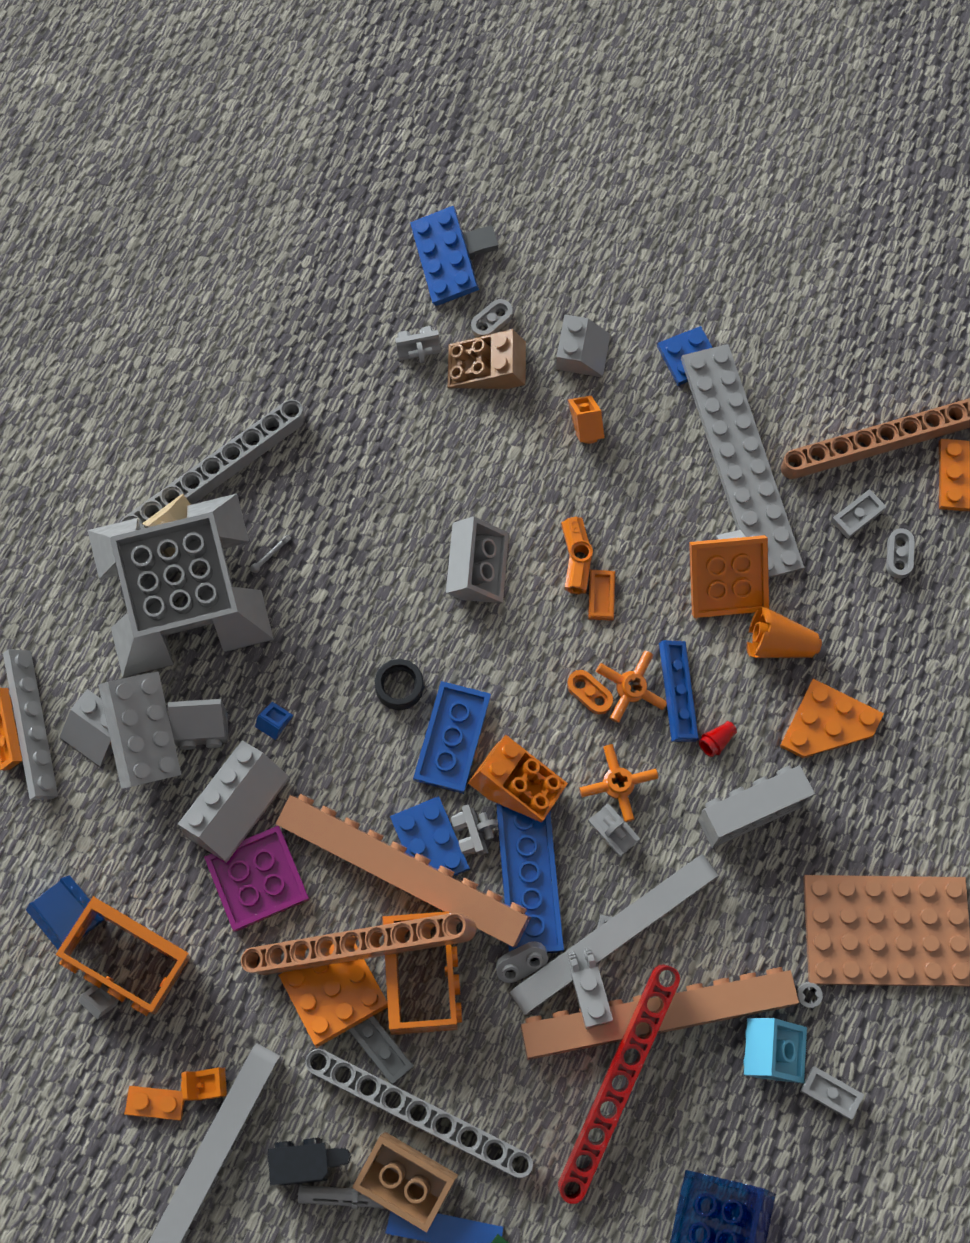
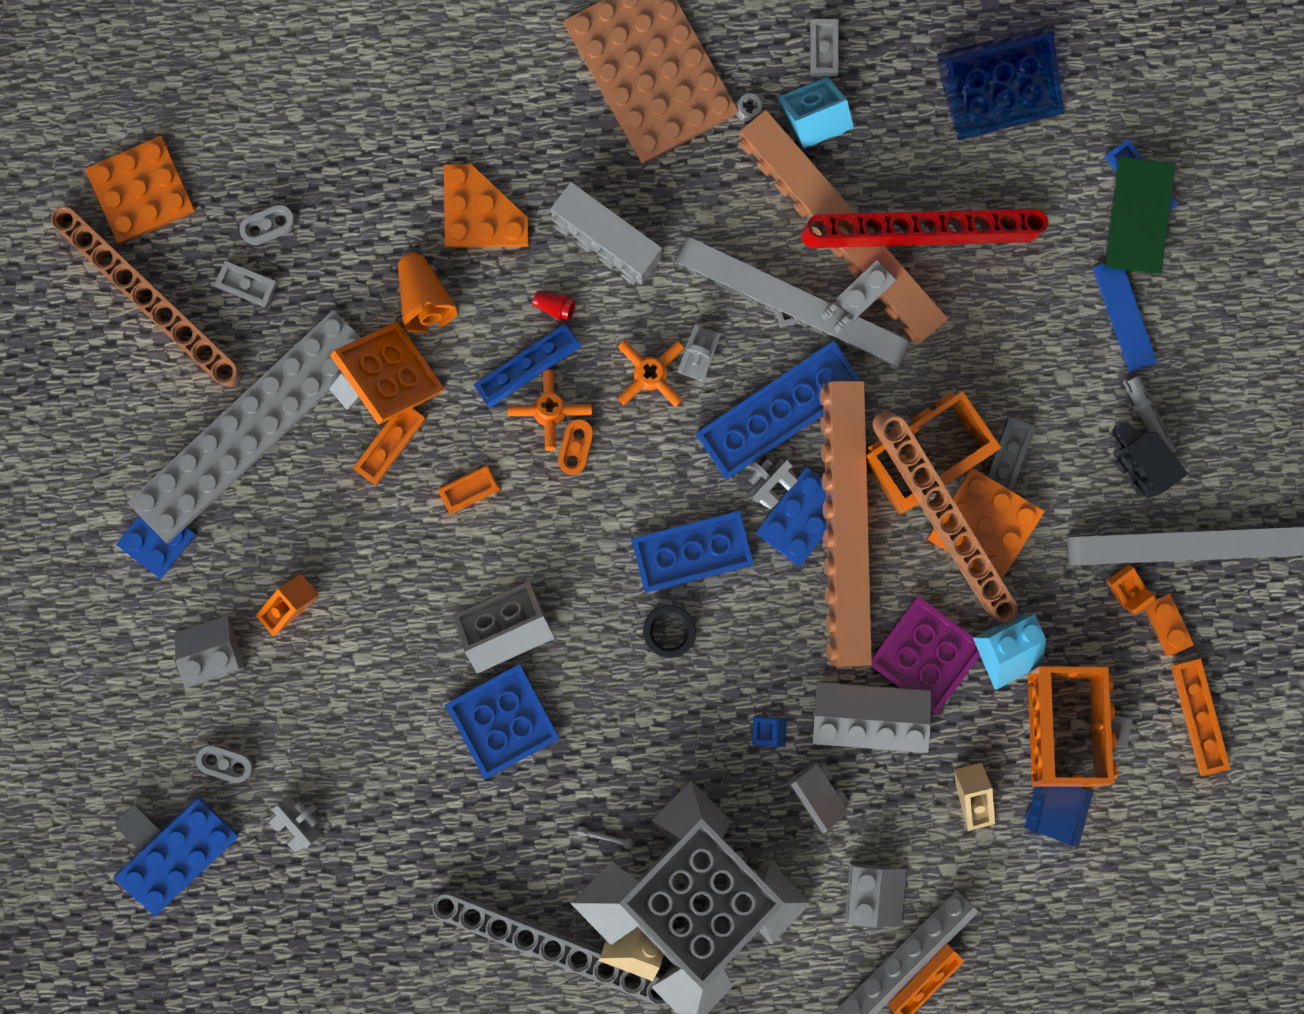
camera: 120 degrees left, 15 degrees up
(62, 1082) = (1200, 717): none -> orange plate
(120, 851) = (975, 796): none -> tan slope
(139, 729) = (860, 846): light grey brick -> none
(217, 949) = (1012, 649): none -> medium azure slope
(404, 524) = (502, 721): none -> blue plate
(405, 1181) = (1108, 367): medium nougat slope -> none
(408, 1102) = (1049, 376): light grey beam -> none
(488, 362) = (278, 740): medium nougat slope -> none
(517, 780) = (703, 465): orange slope -> none
(520, 962) = (863, 368): light grey plate -> none
(577, 541) = (457, 524): orange piece -> none
(670, 552) = (389, 445): none -> orange plate

